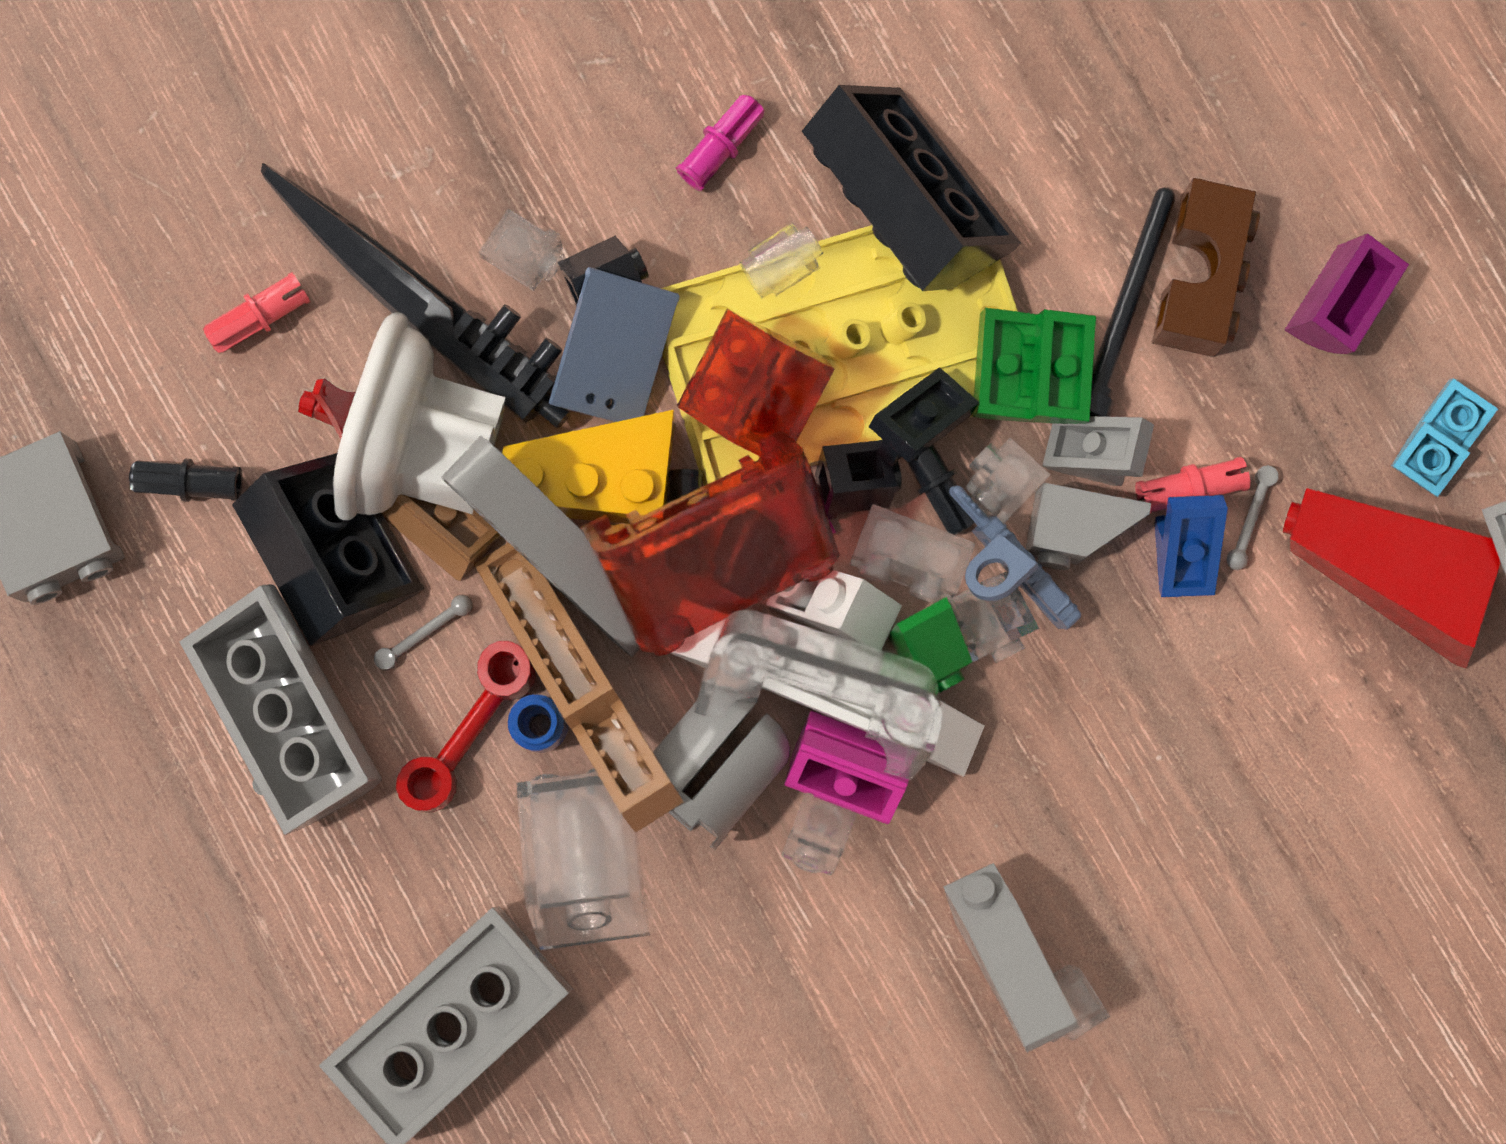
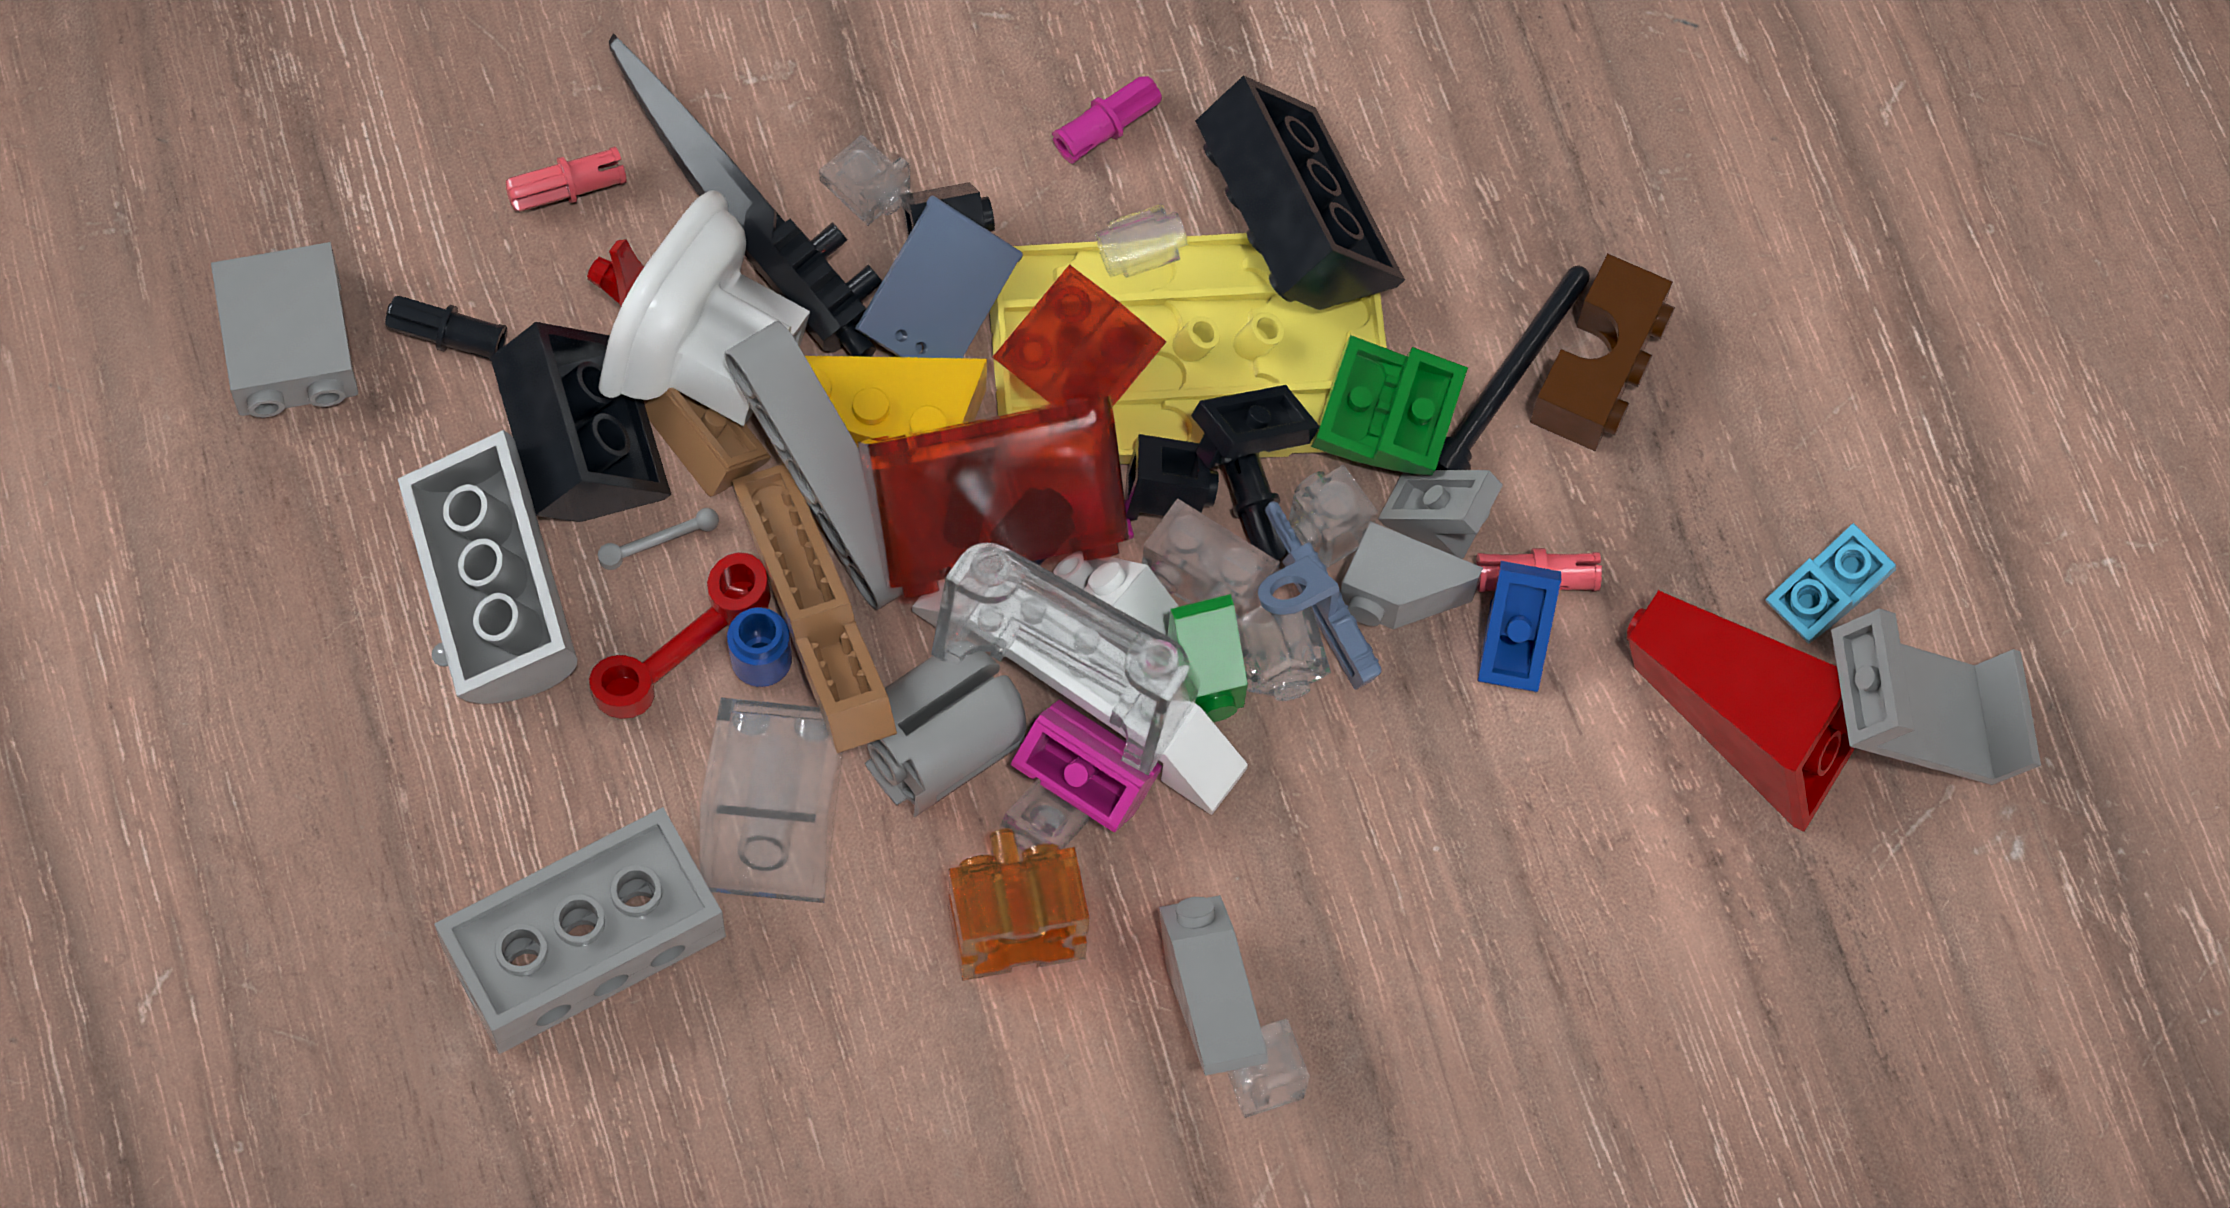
camera: 15 degrees right, 15 degrees down
(821, 916) = (1017, 910): none -> clear orange brick
(1265, 478) = (1623, 587): light grey hinge -> none
(1347, 295) = (1753, 413): magenta brick -> none

